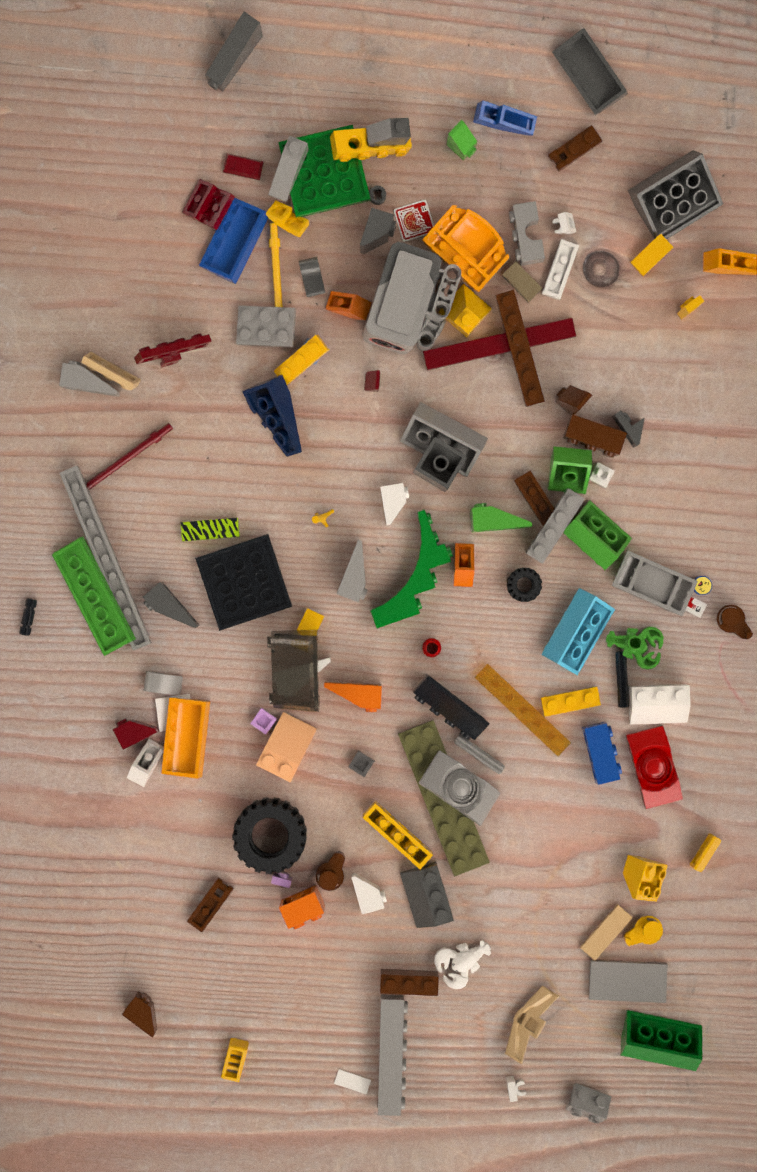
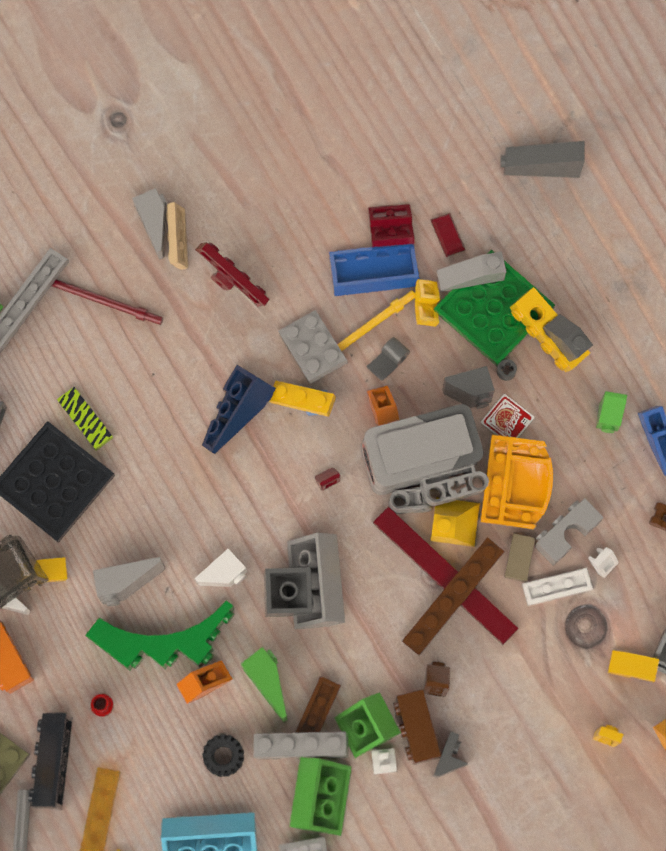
camera: 55 degrees right, 15 degrees down
(321, 518) = (162, 514): yellow bar -> none

